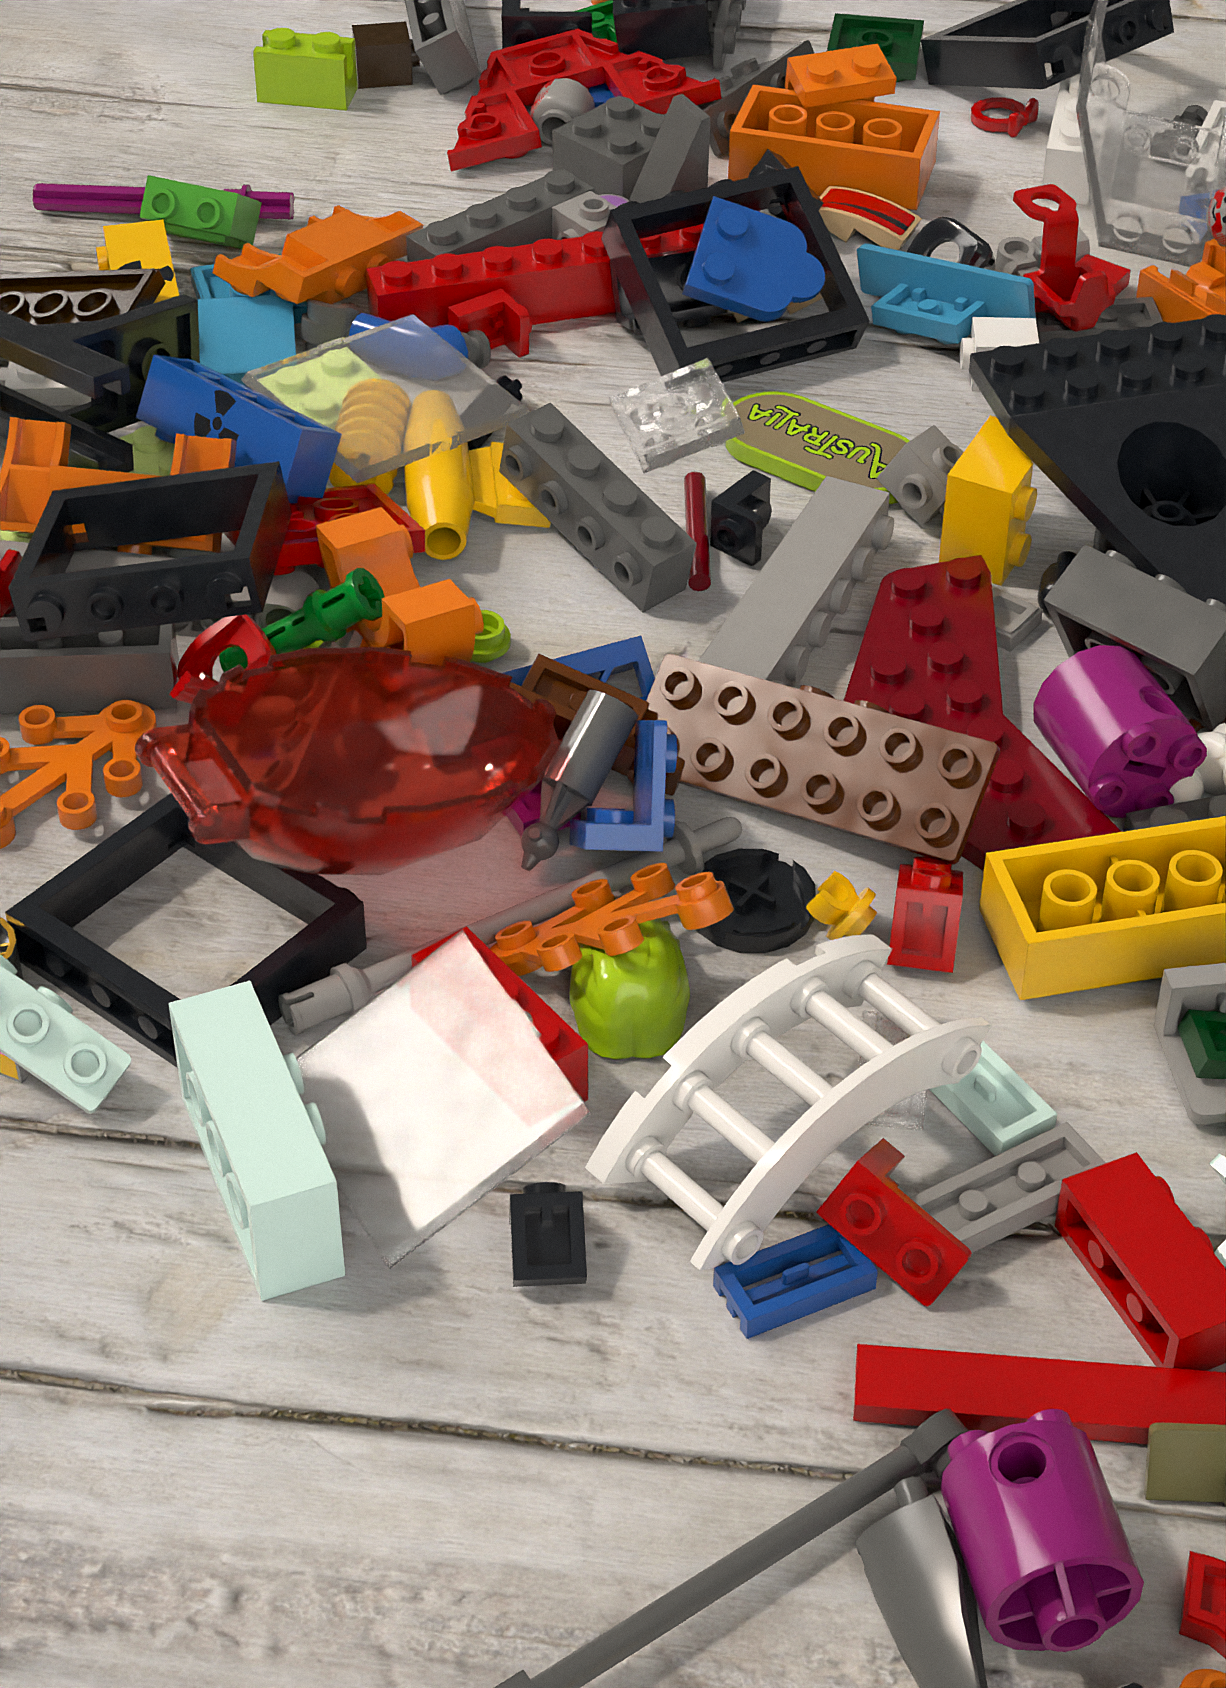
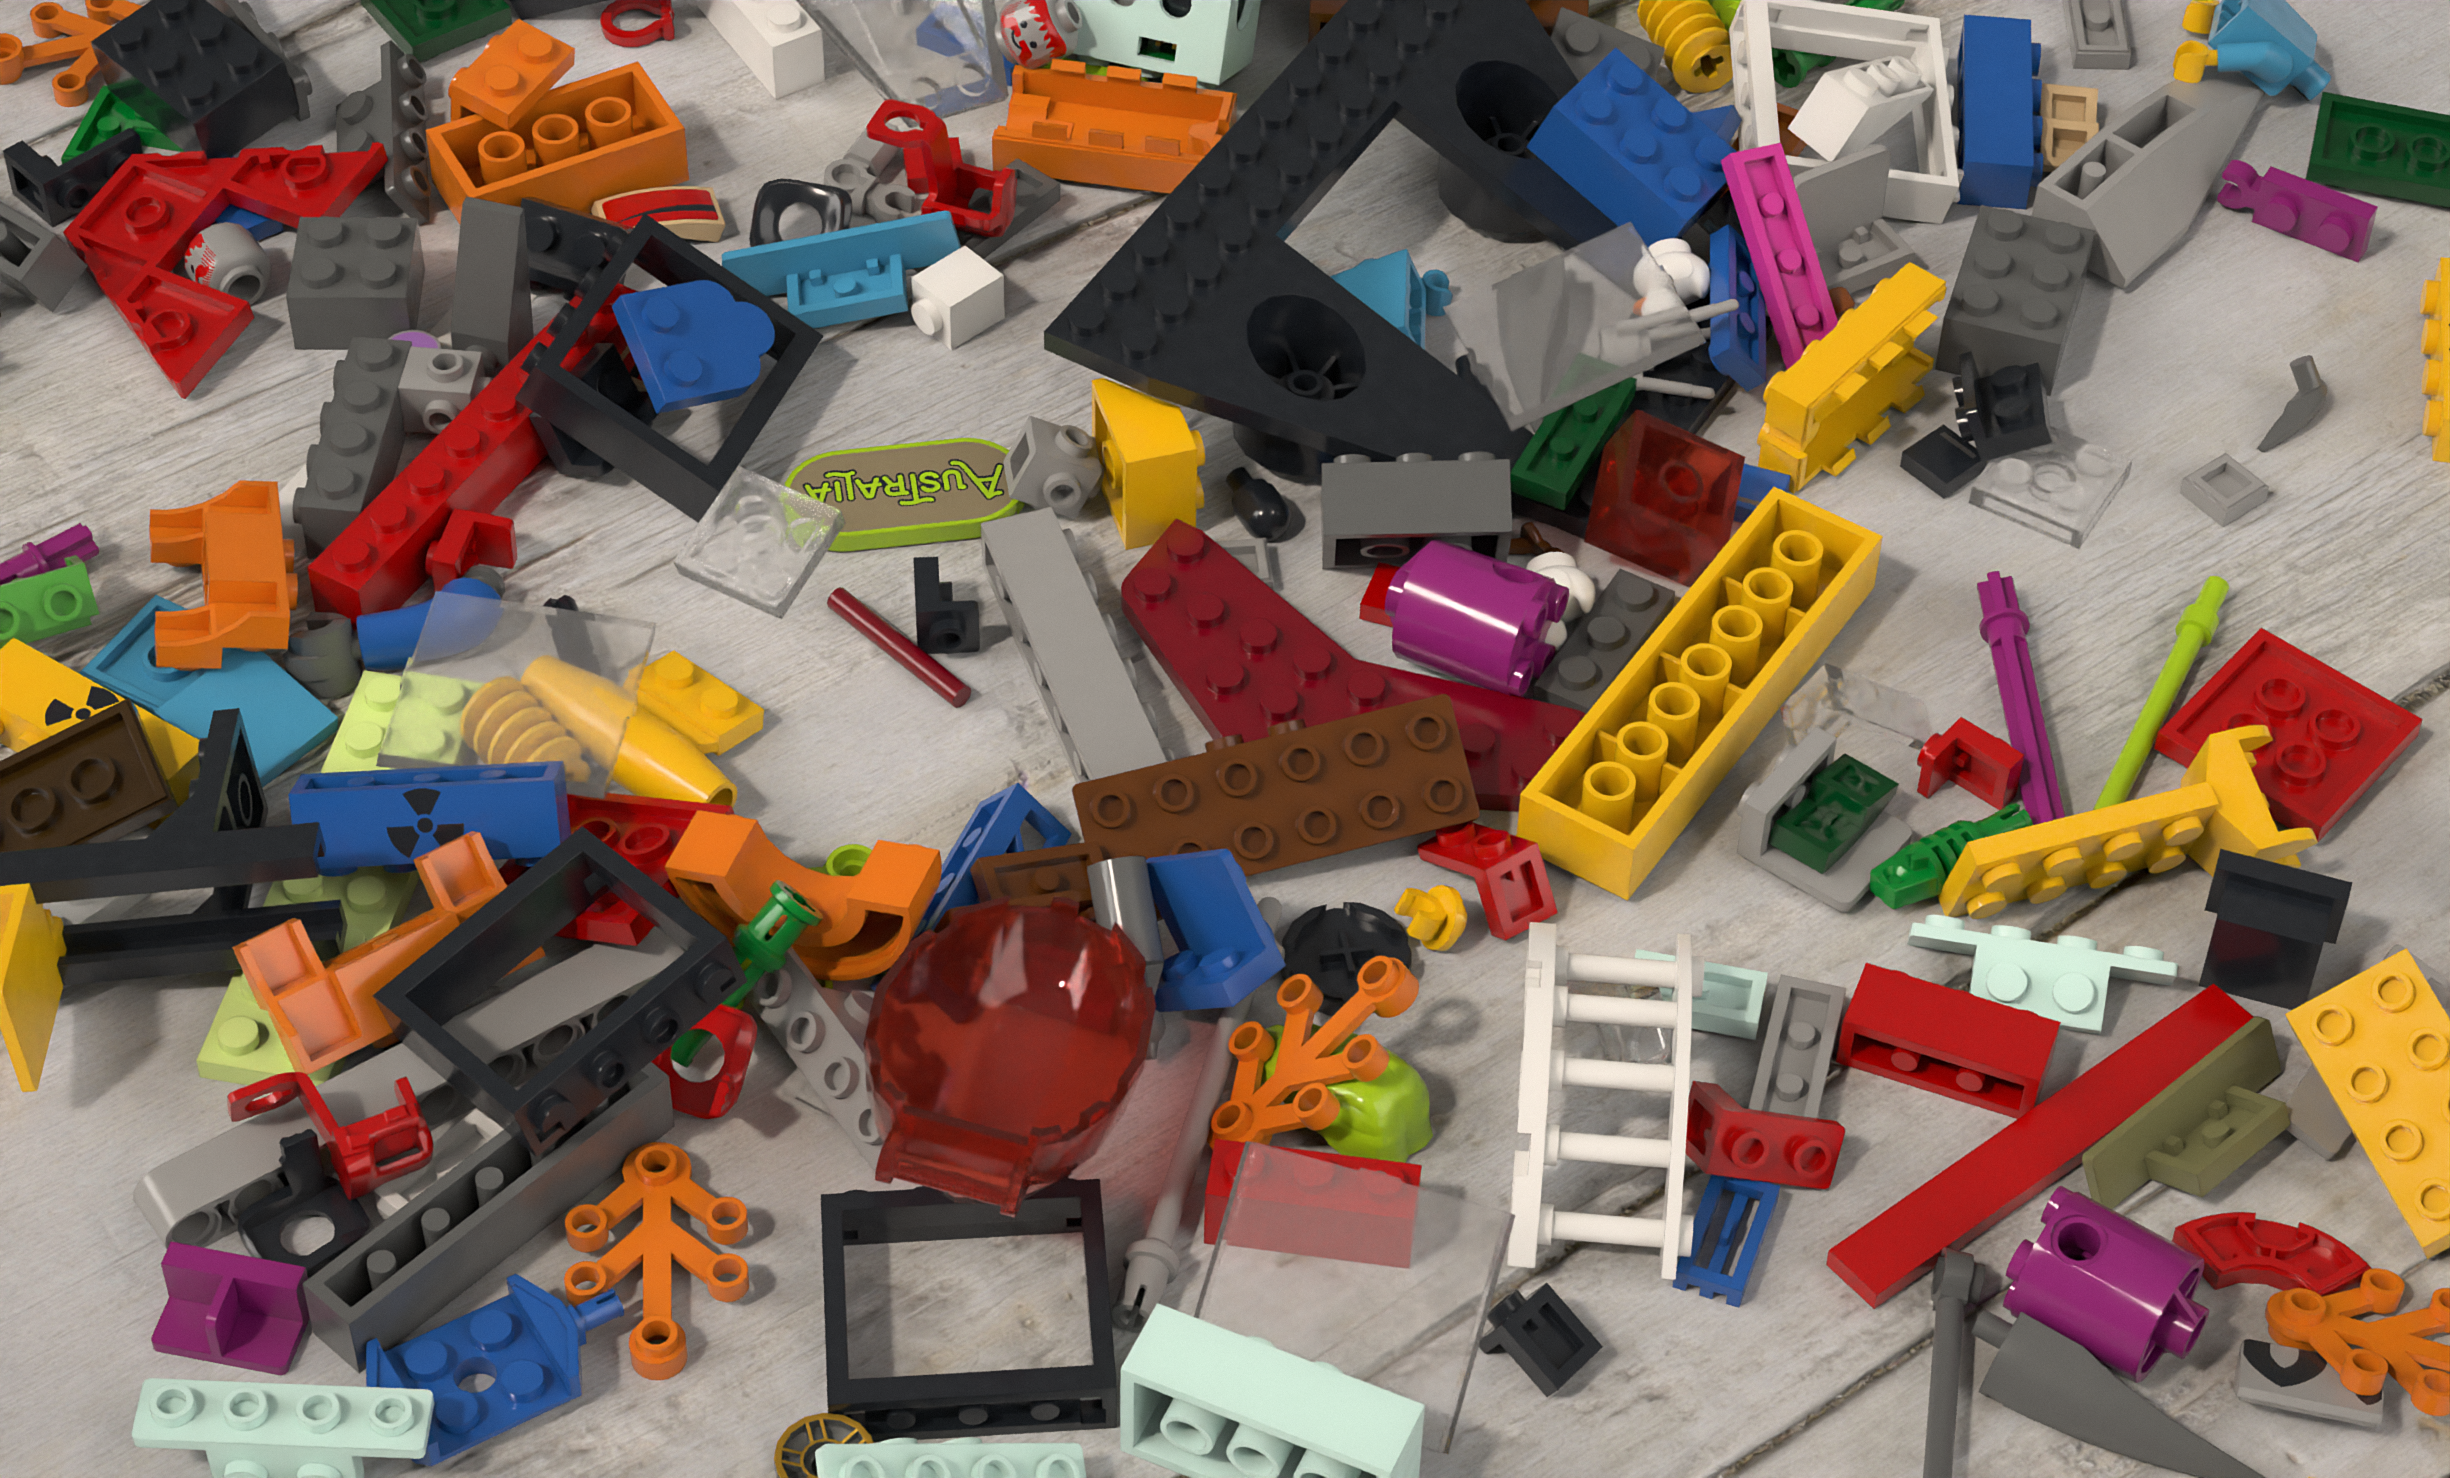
camera: 45 degrees left, 5 degrees up
(597, 507) = (828, 682): dark grey brick -> none

